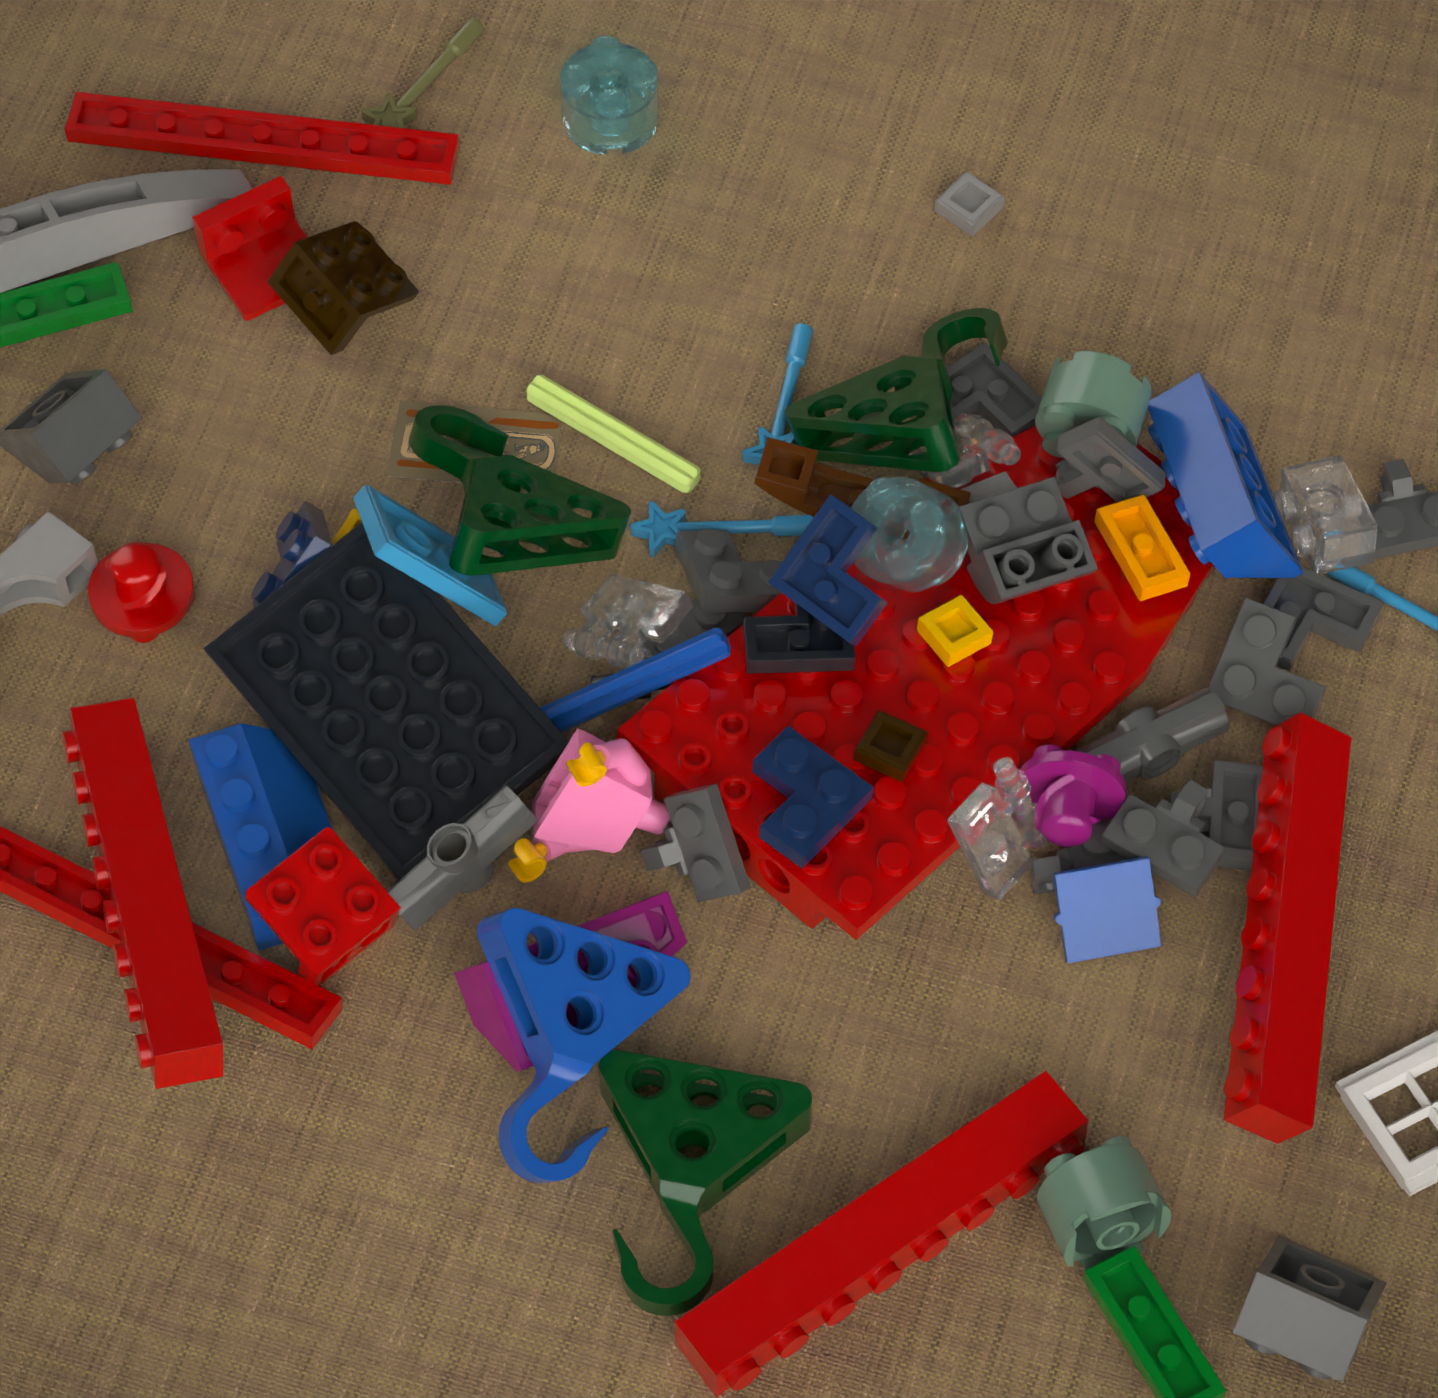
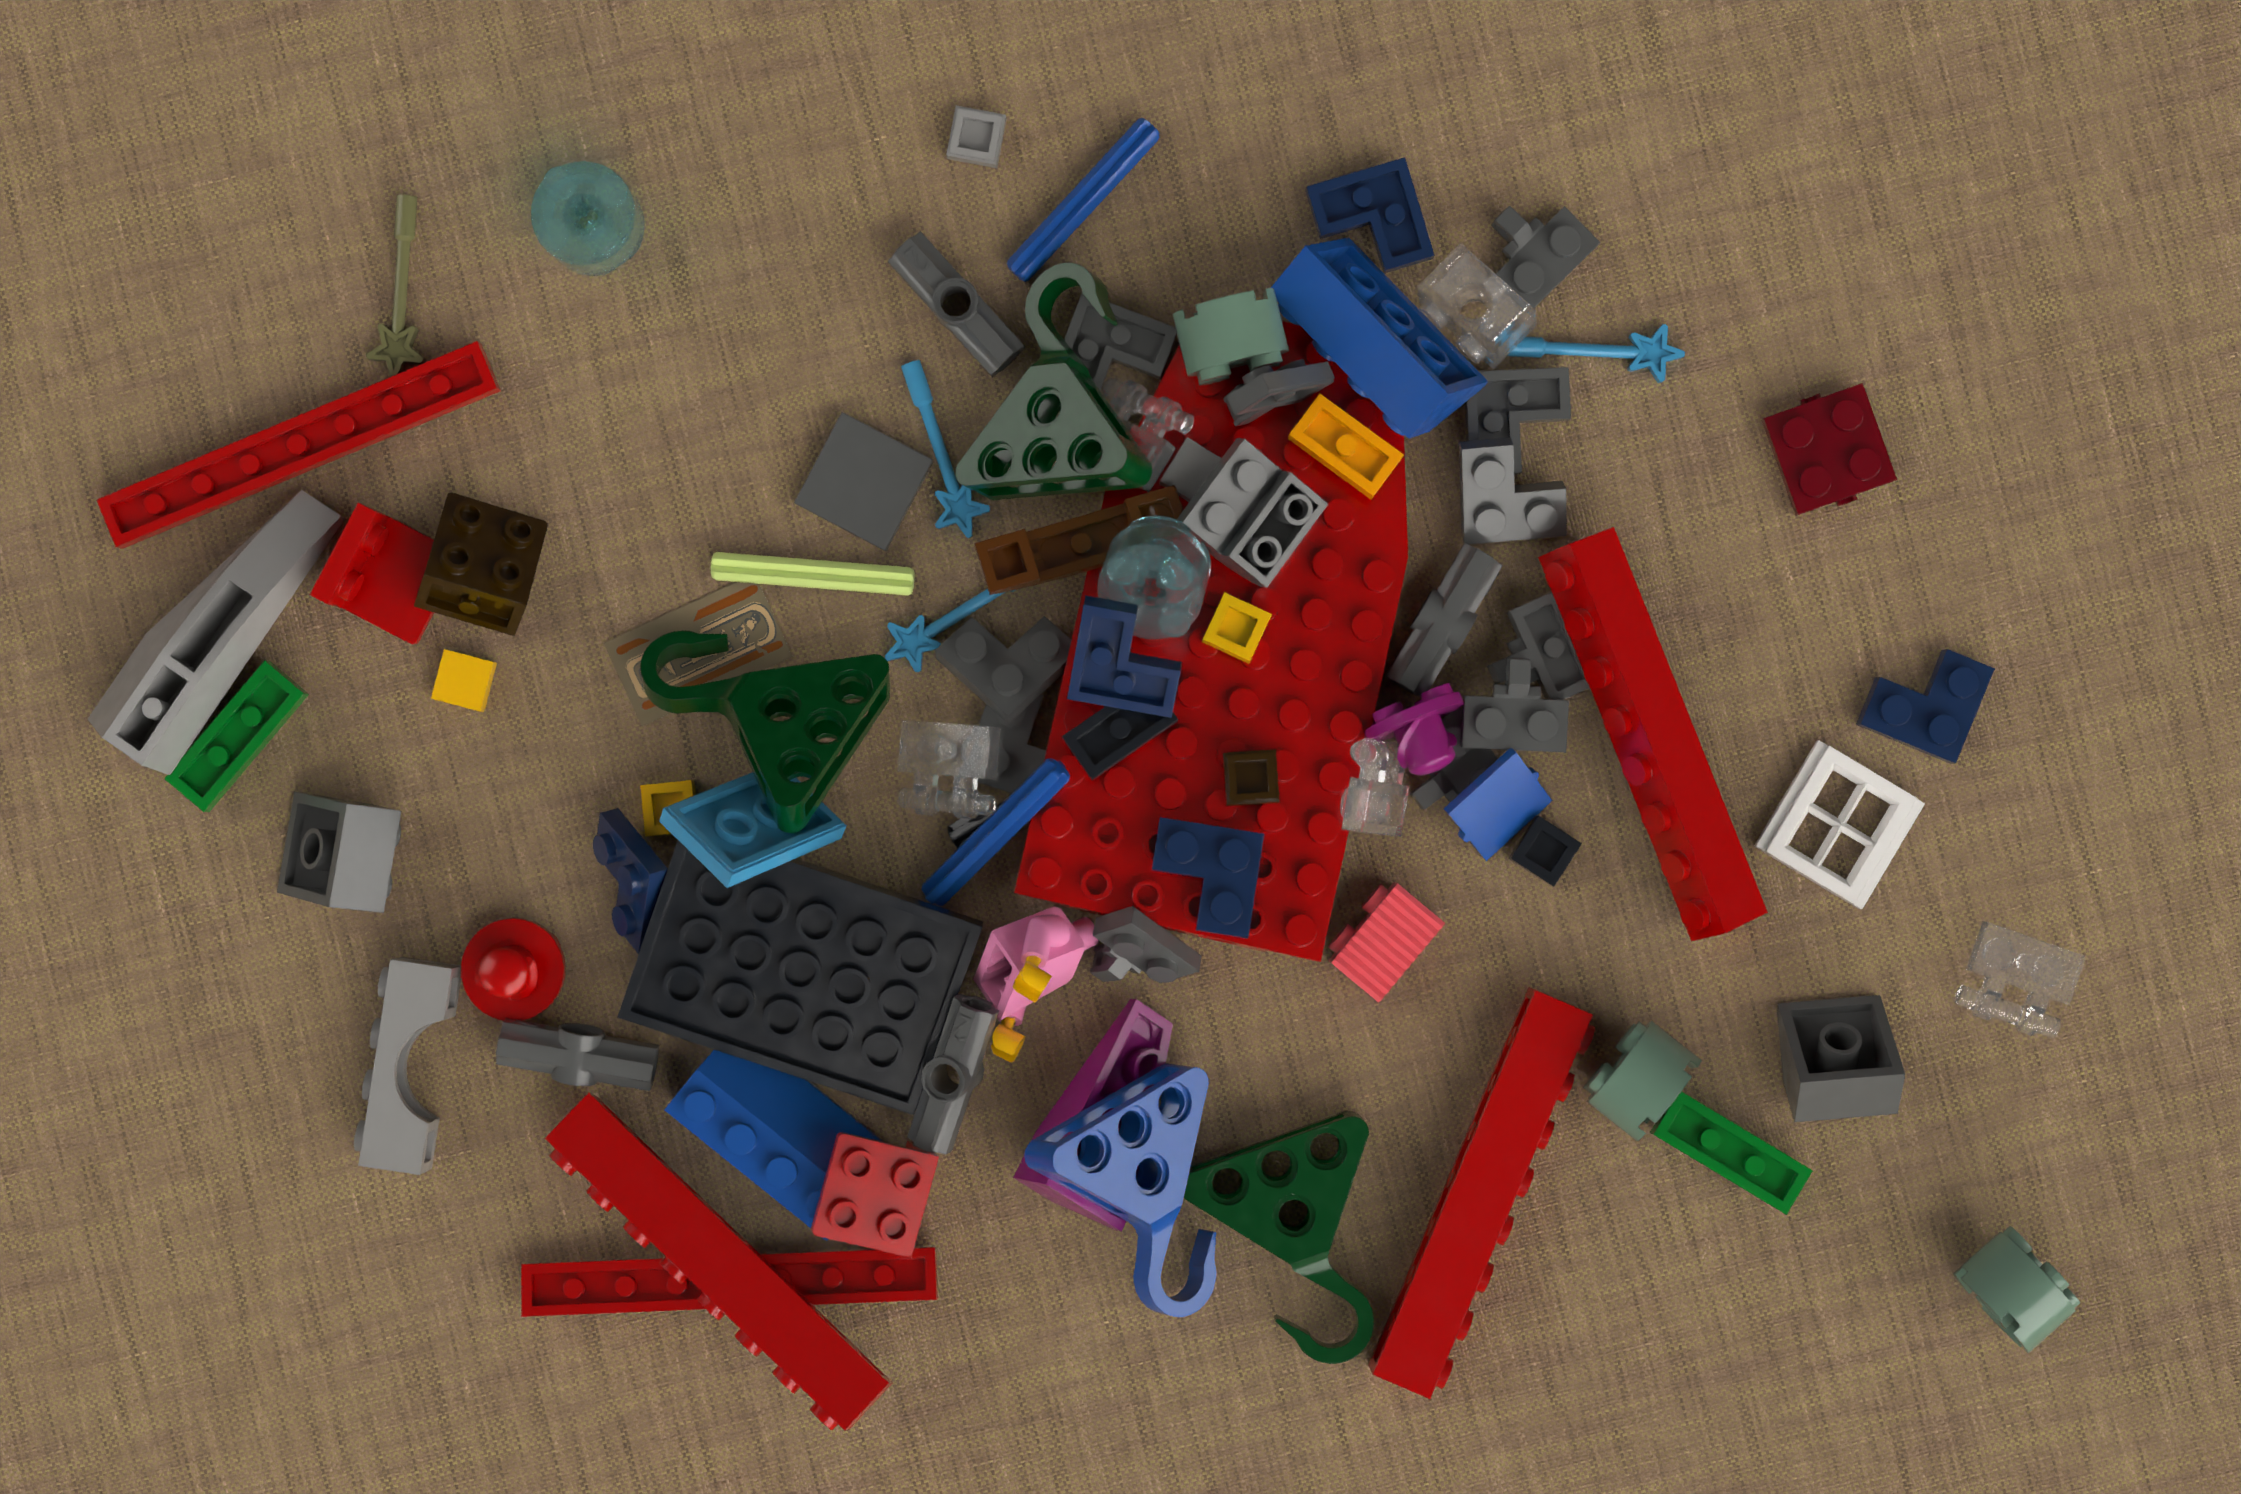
camera: 30 degrees left, 30 degrees up
(146, 675) = (577, 1054): none -> dark grey piece
(265, 364) = (463, 680): none -> yellow tile
(704, 392) = (864, 481): none -> dark grey tile
(870, 297) = (934, 281): none -> dark grey piece
(929, 968) = (1384, 940): none -> coral brick
(1033, 284) = (1083, 199): none -> blue axle
(1128, 982) = (1545, 850): none -> black tile
(1287, 402) = (1377, 198): none -> dark blue plate

